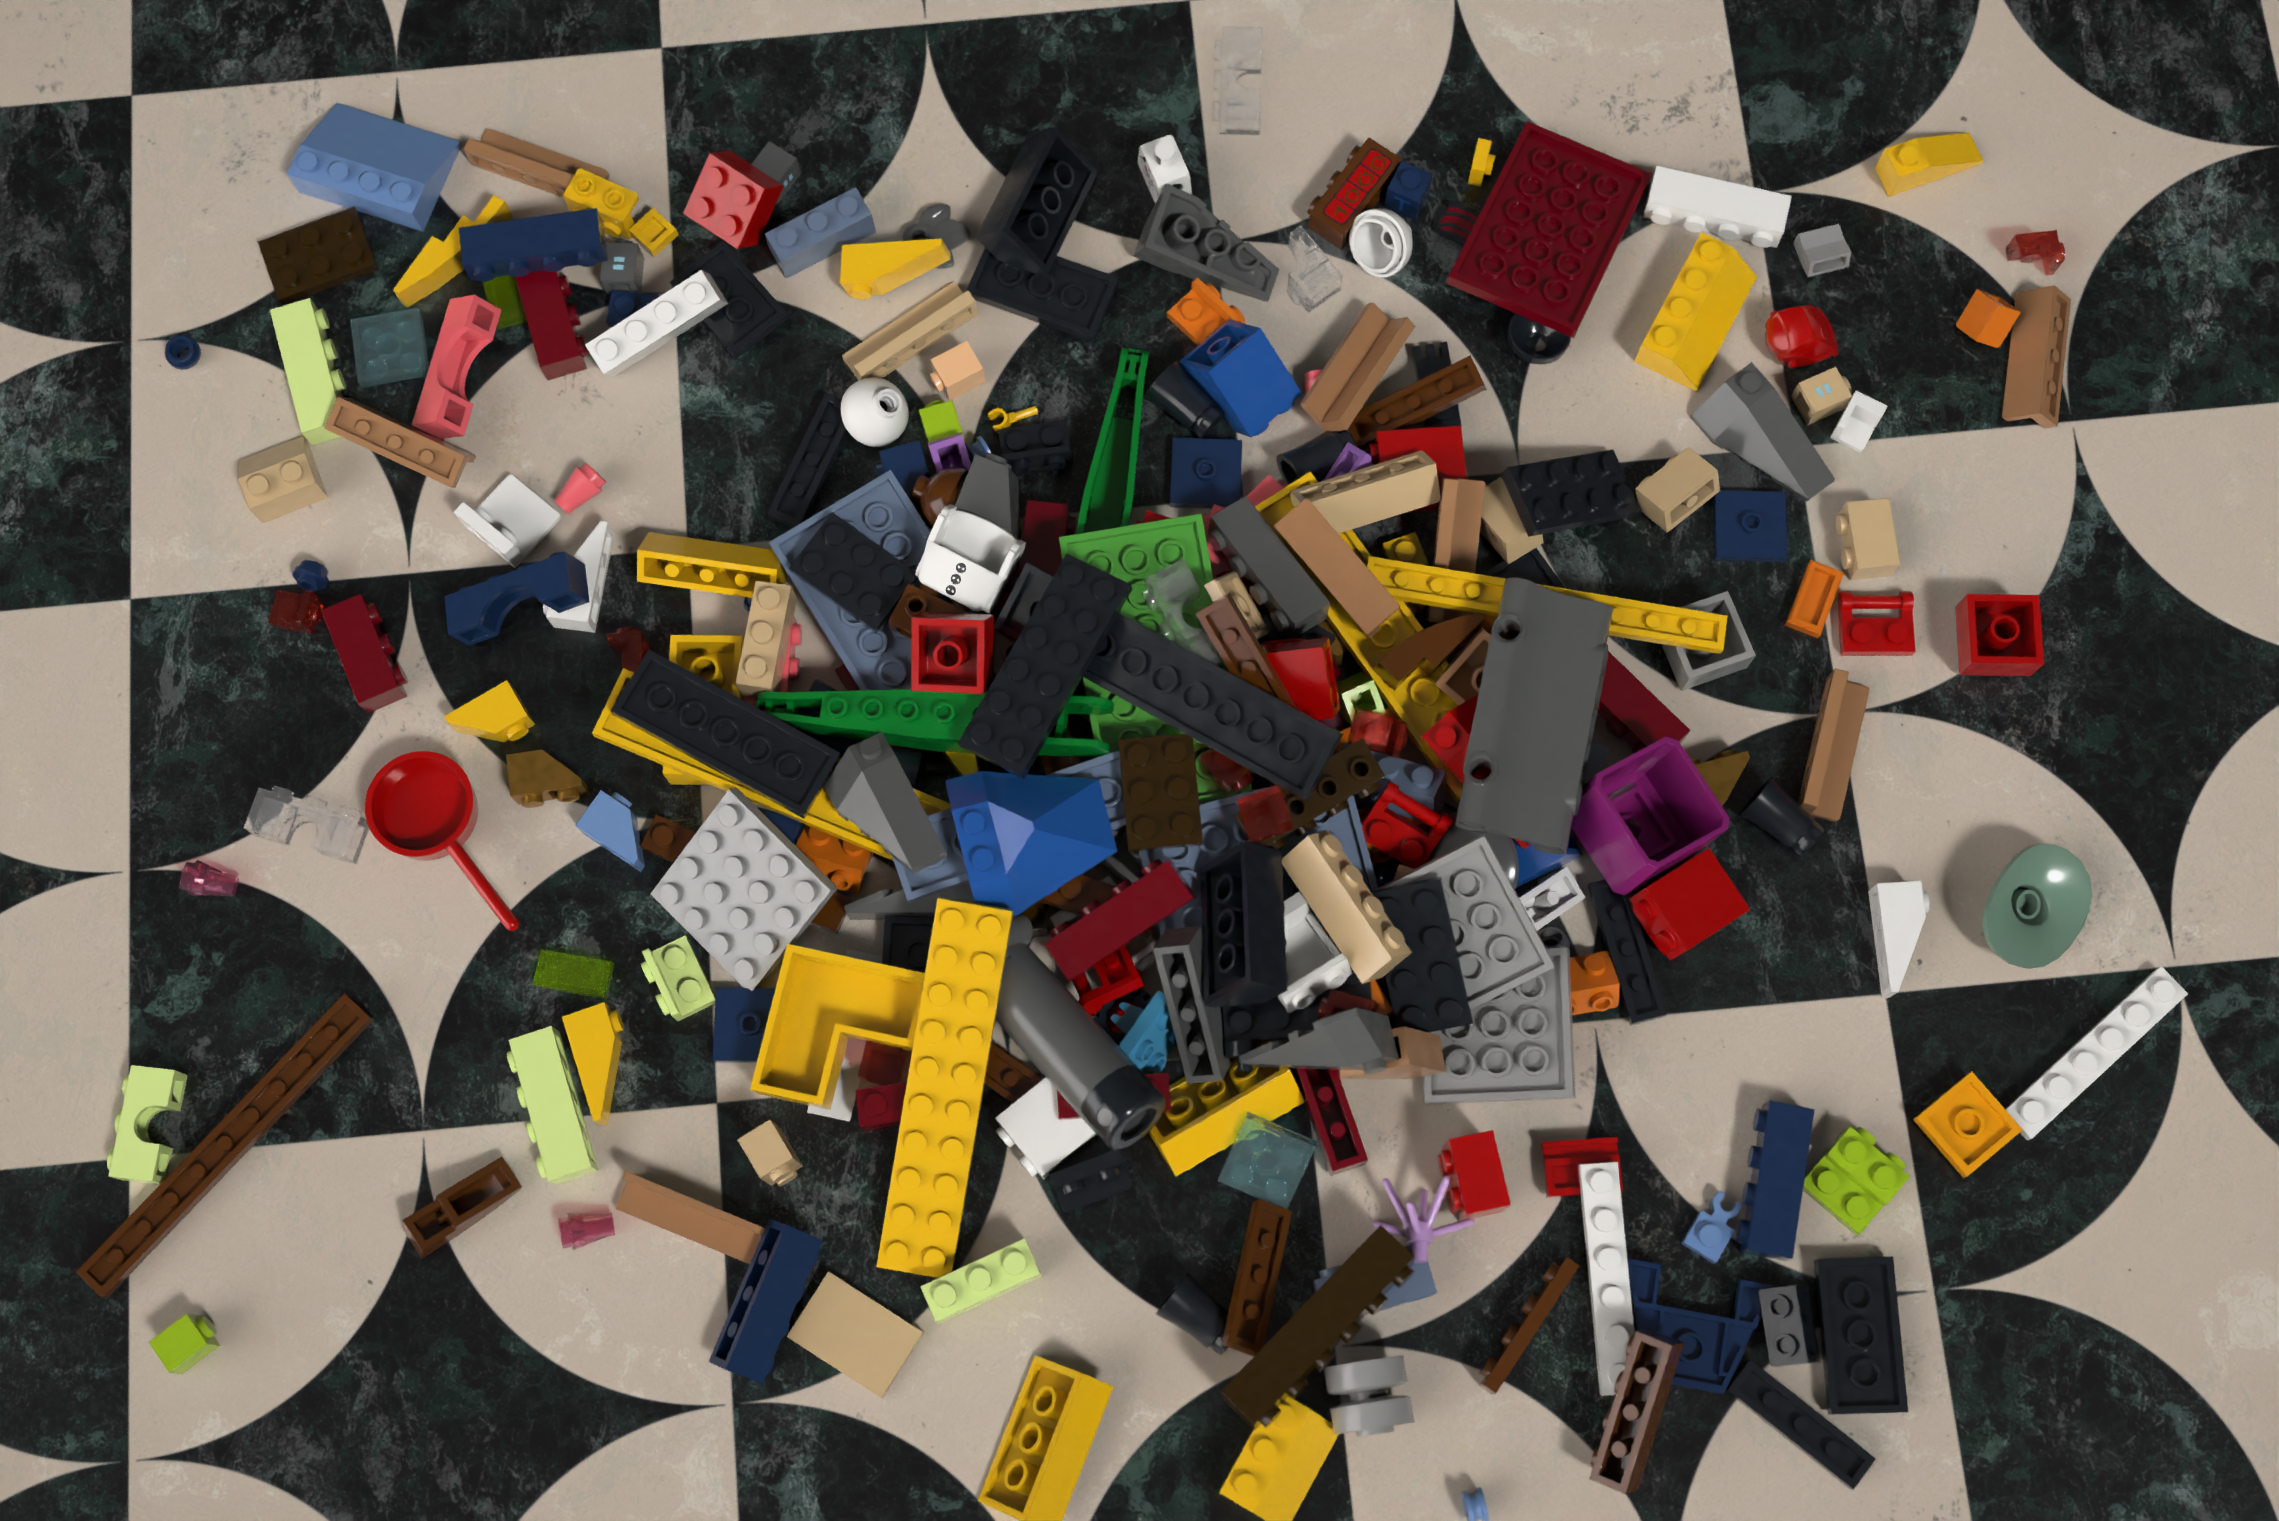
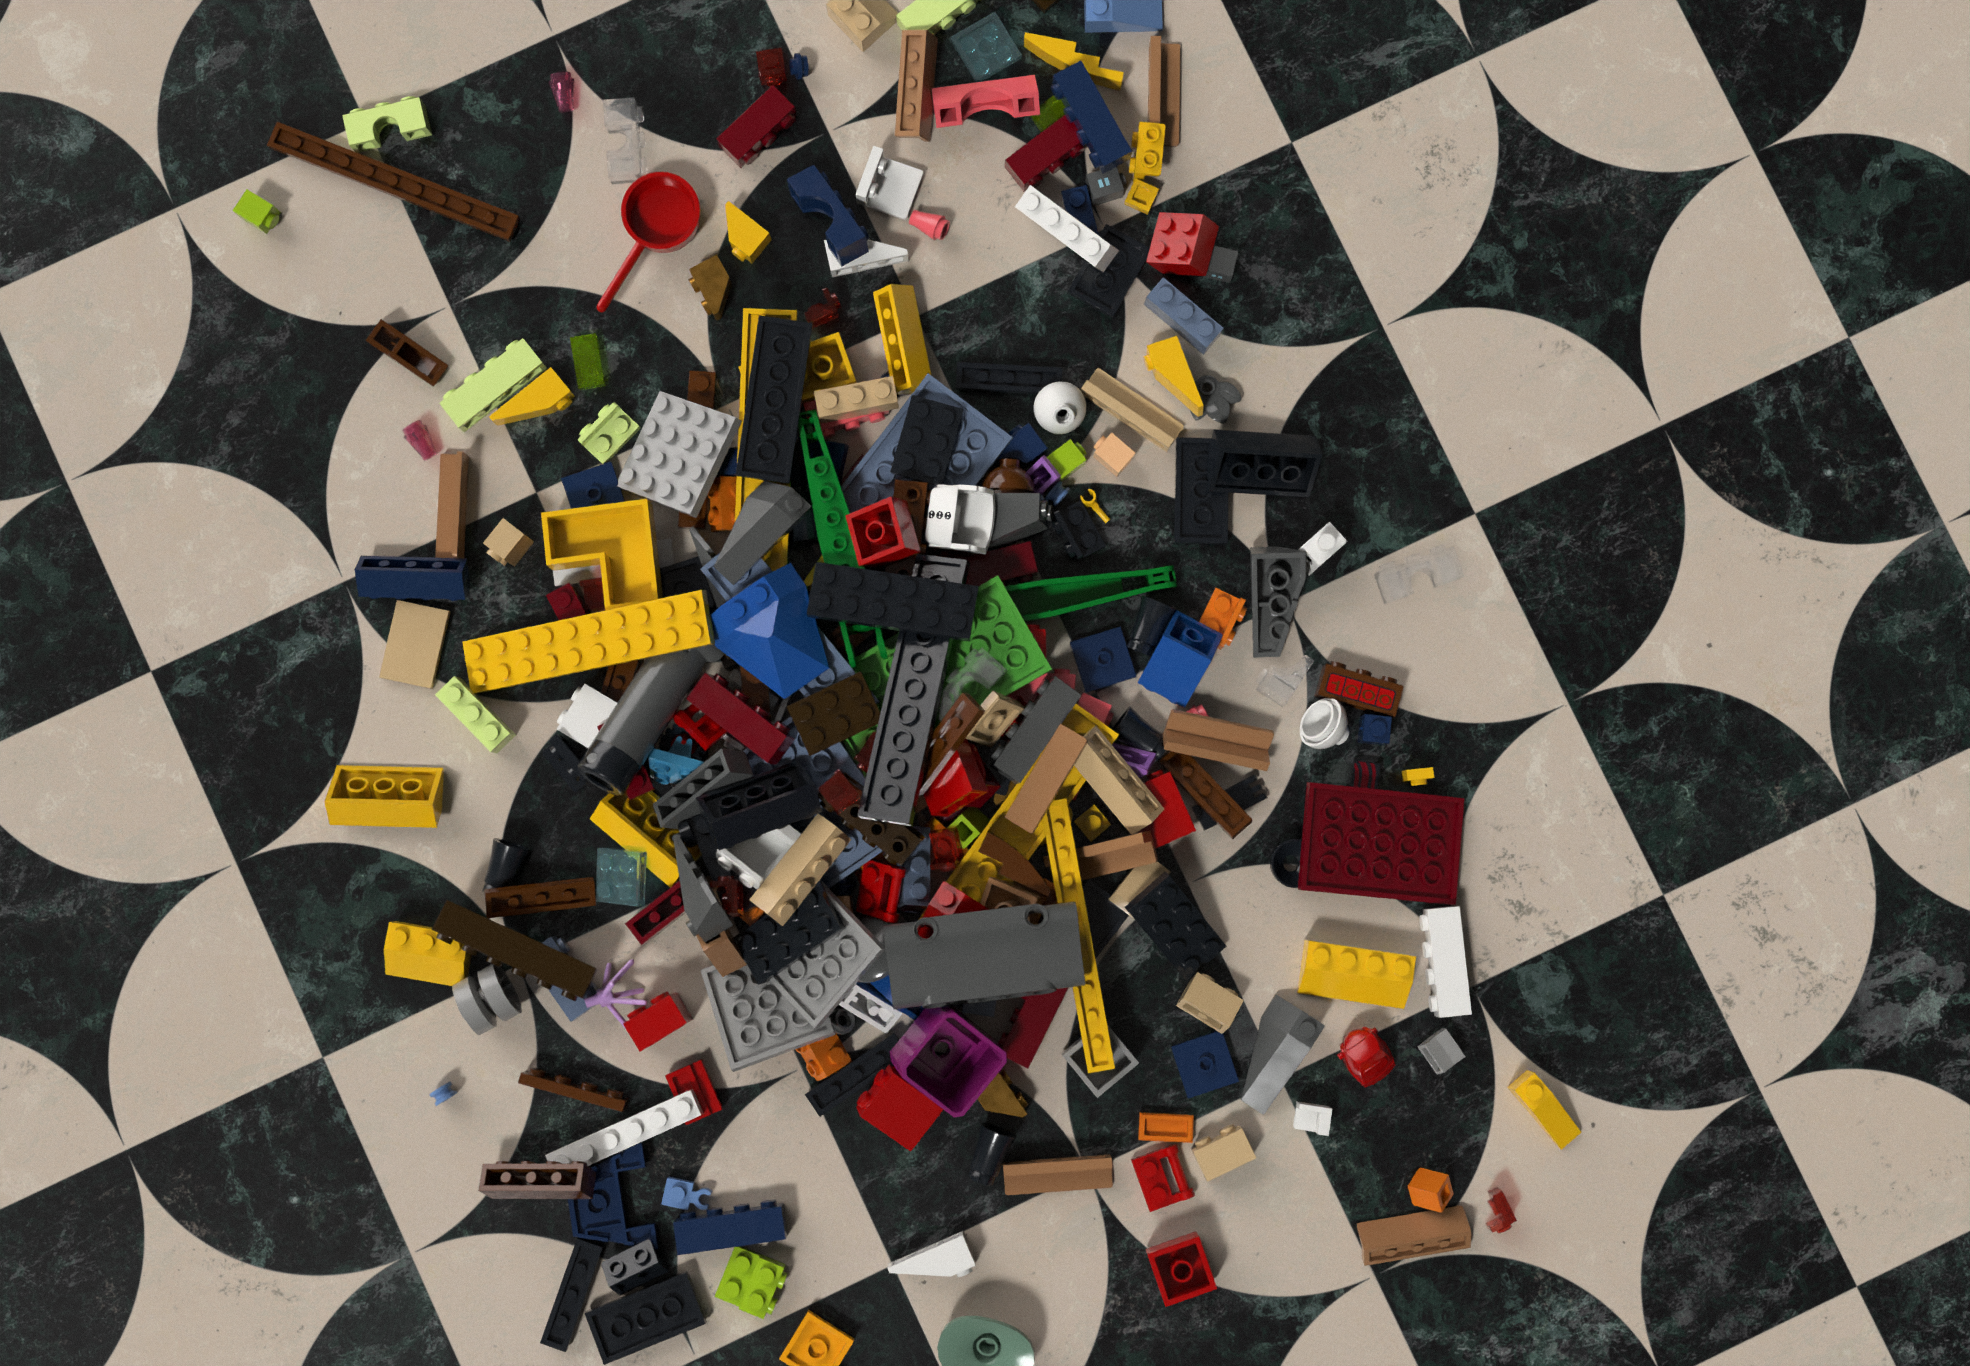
camera: 65 degrees right, 10 degrees up
(613, 827) = (694, 348): medium blue slope -> none
(1822, 395) = (1323, 1086): tan brick -> none

